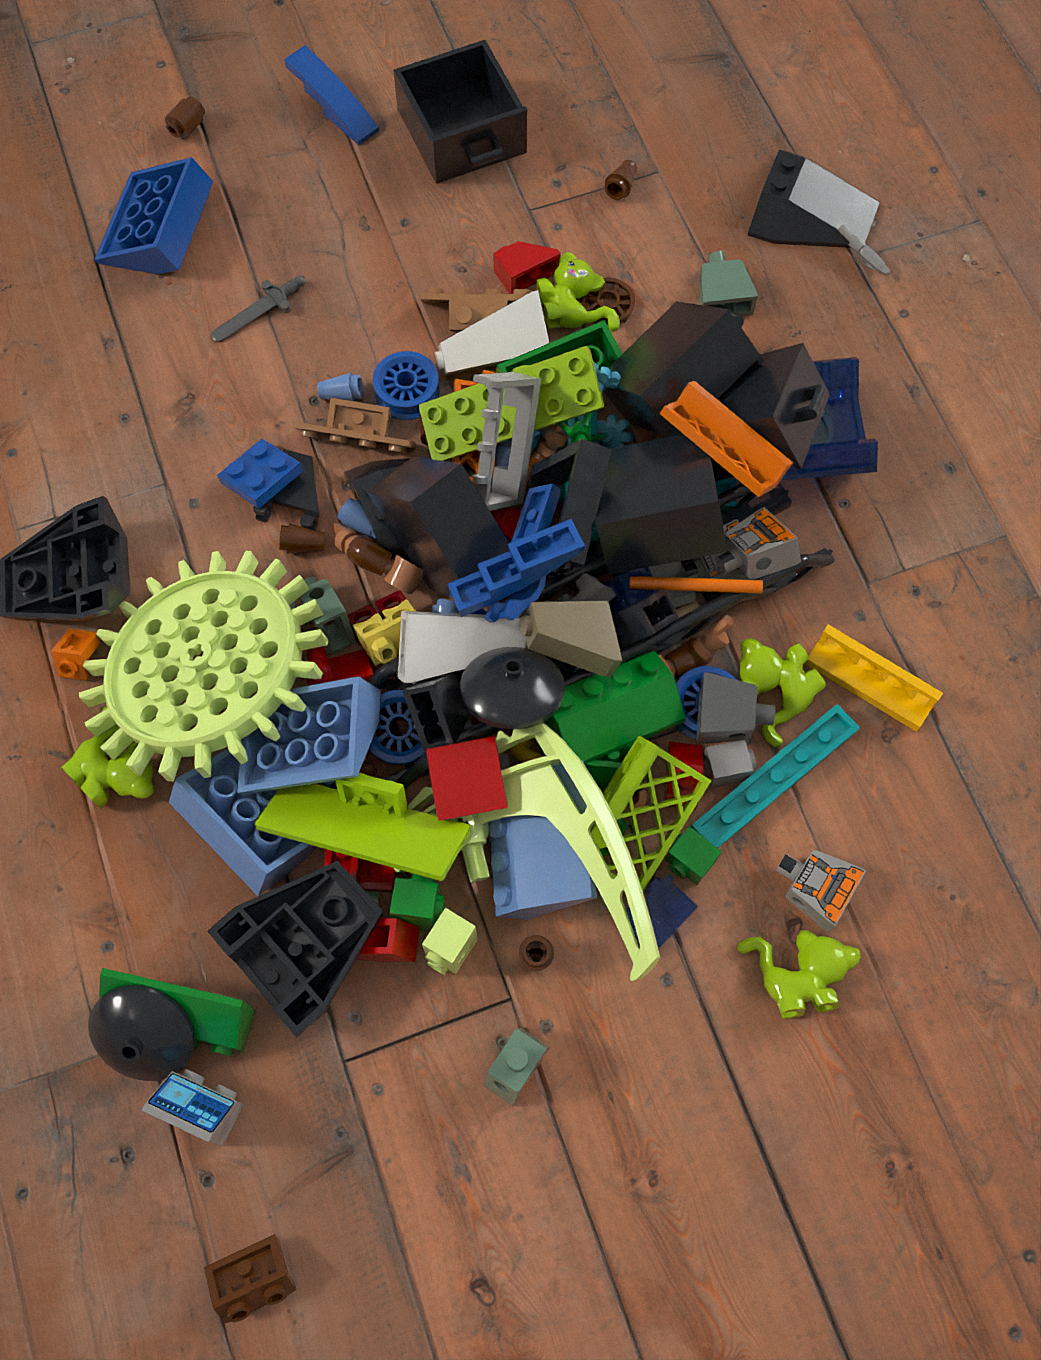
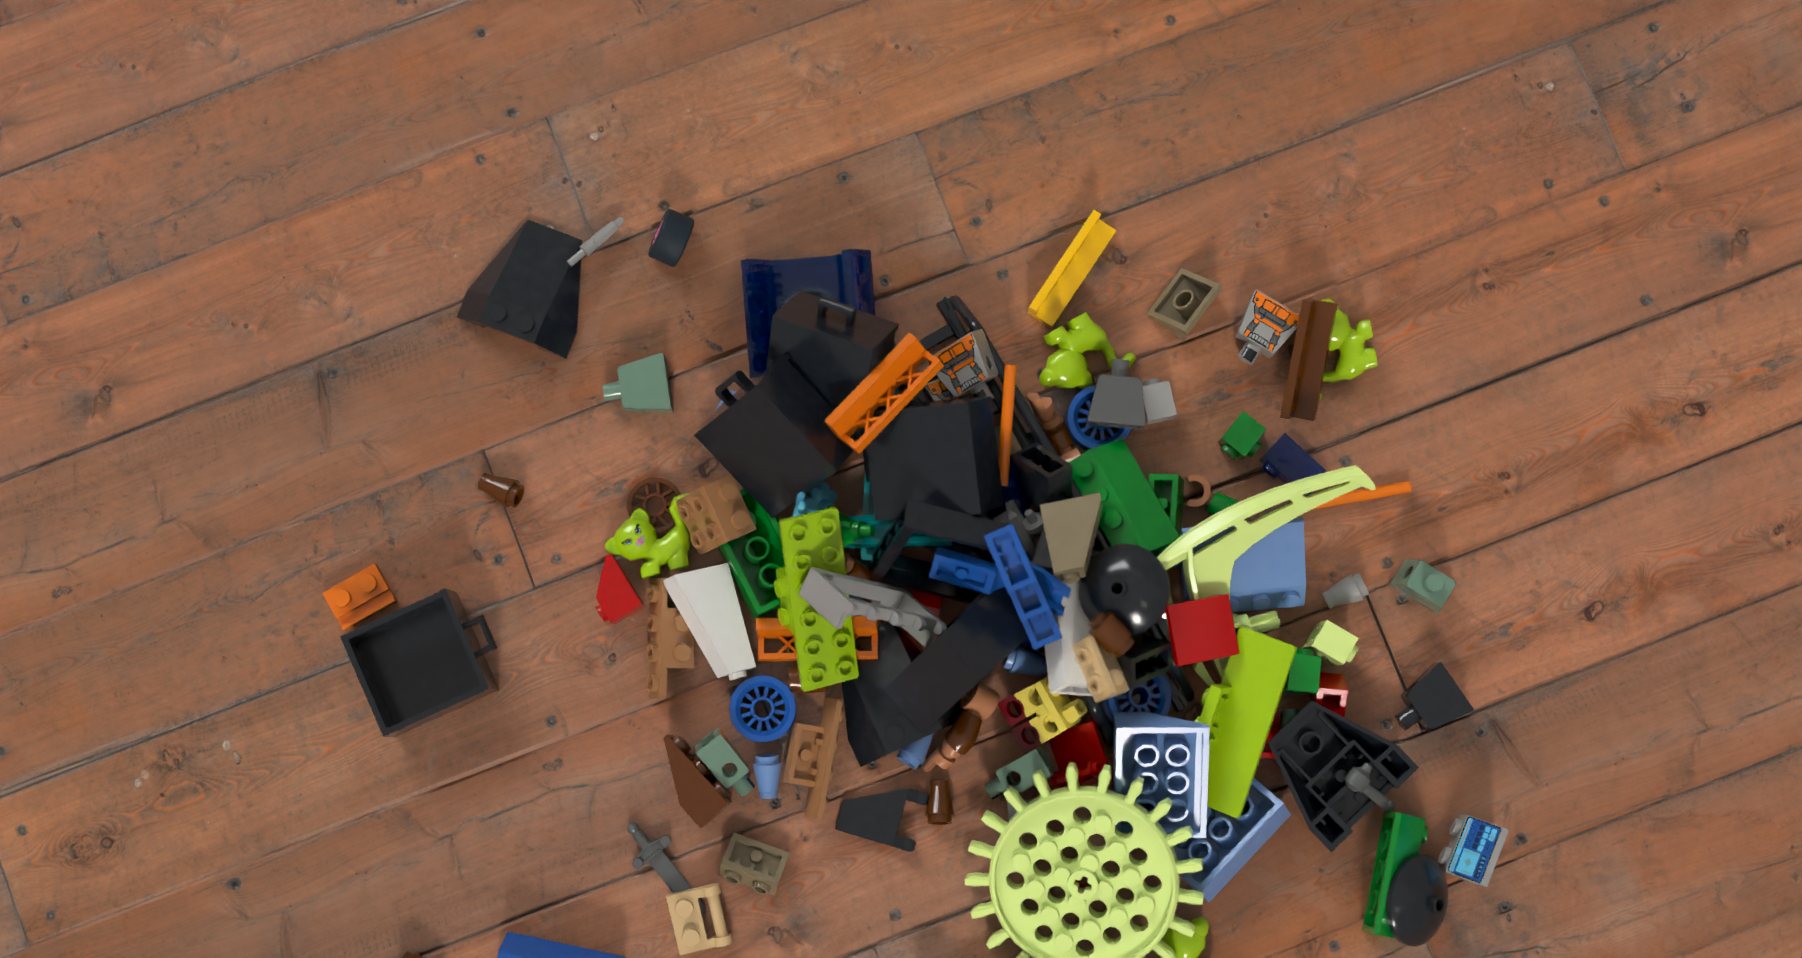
camera: 90 degrees left, 15 degrees up
(206, 324) = (689, 920): none -> tan plate
(249, 1280) = (1596, 795): reddish brown bracket -> none
(257, 374) = (753, 864): none -> dark tan bracket
(260, 473) = (869, 848): blue plate -> none
(286, 964) = (1359, 781): none -> dark grey piece
(331, 93) = (387, 809): blue slope -> none
(337, 316) = (695, 789): none -> reddish brown slope
(356, 345) = (717, 751): none -> sand green torso
(378, 1069) = (1432, 700): none -> black torso
(426, 657) = (1100, 670): none -> tan bracket
(461, 662) = (1111, 634): none -> reddish brown brick
(513, 975) = (1346, 591): none -> light grey cone
(527, 79) = (359, 597): none -> orange plate
(539, 945) = (1344, 568): reddish brown cone -> none
(603, 331) = (715, 514): none -> medium nougat bracket
(622, 788) = (1188, 484): lime fence -> none
(625, 988) = (1367, 494): none -> orange bar
(690, 755) = (1166, 442): red slope -> none
(776, 777) = (1167, 360): teal plate -> none
(785, 928) = (1309, 359): none -> reddish brown fence
(841, 800) = (1184, 302): none -> dark tan slope
(873, 307) = (671, 237): none -> black wheel

